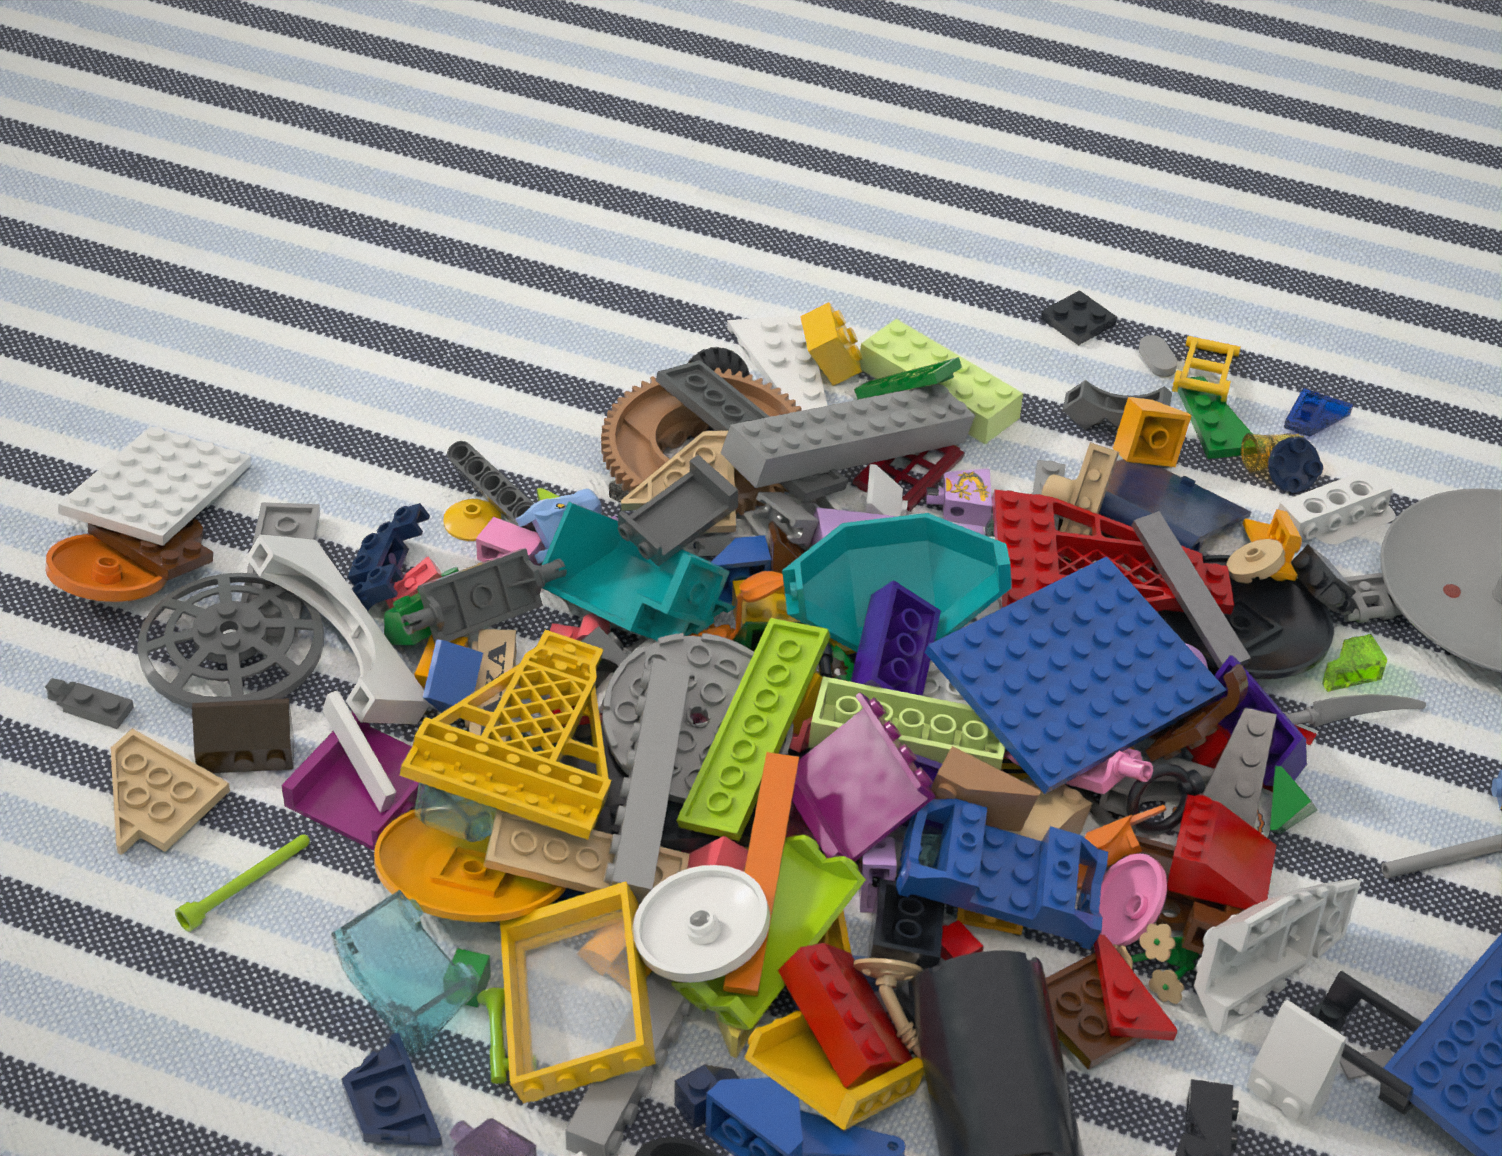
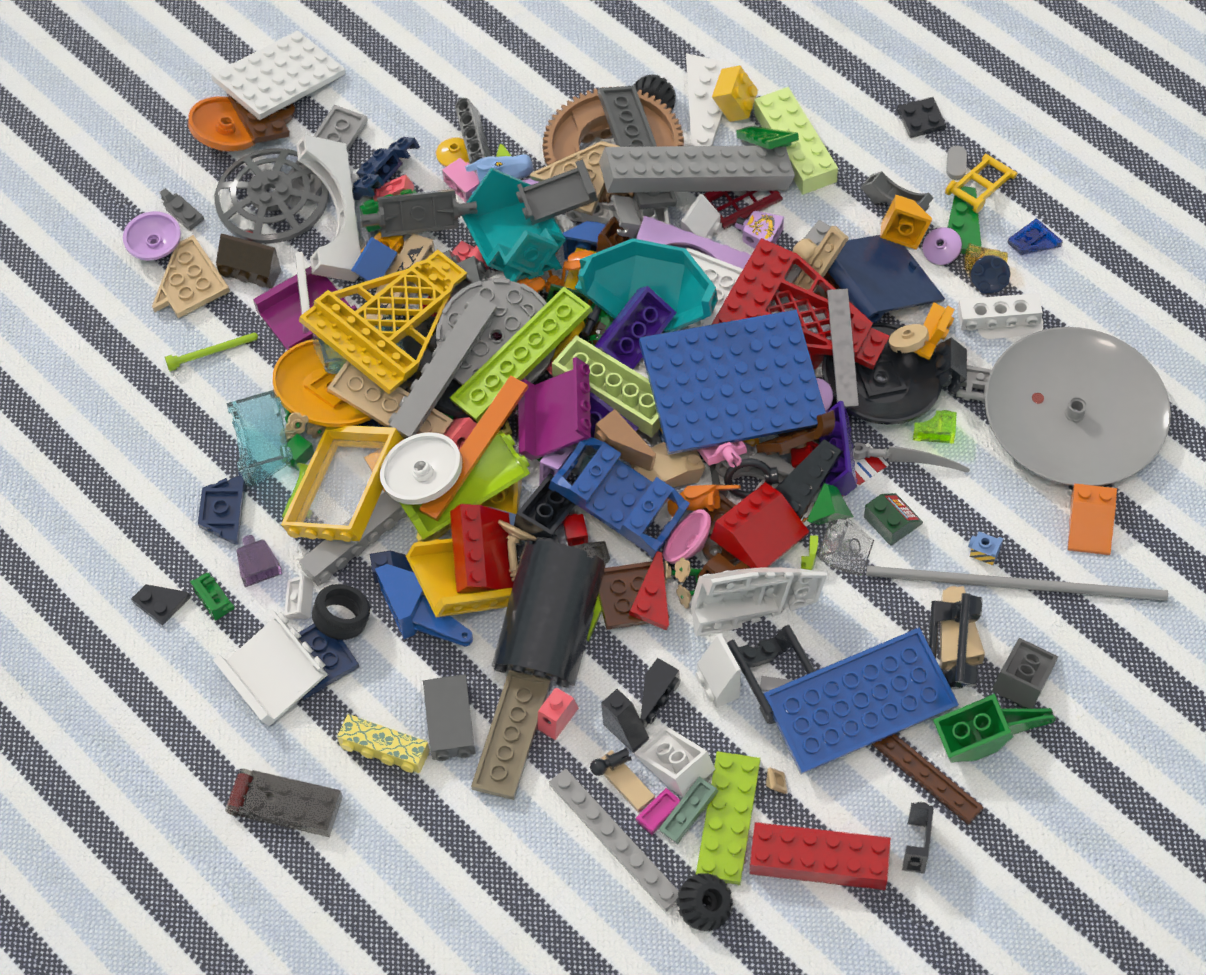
camera: 30 degrees right, 15 degrees up
(67, 746) = (149, 229): none -> lavender dish
(459, 928) = (296, 424): none -> tan plant
(1212, 461) = (948, 251): none -> lavender dish
(1300, 867) = (808, 562): none -> lime slope
(1338, 846) = (845, 547): none -> clear slope
(1371, 795) = (891, 517): none -> dark green slope

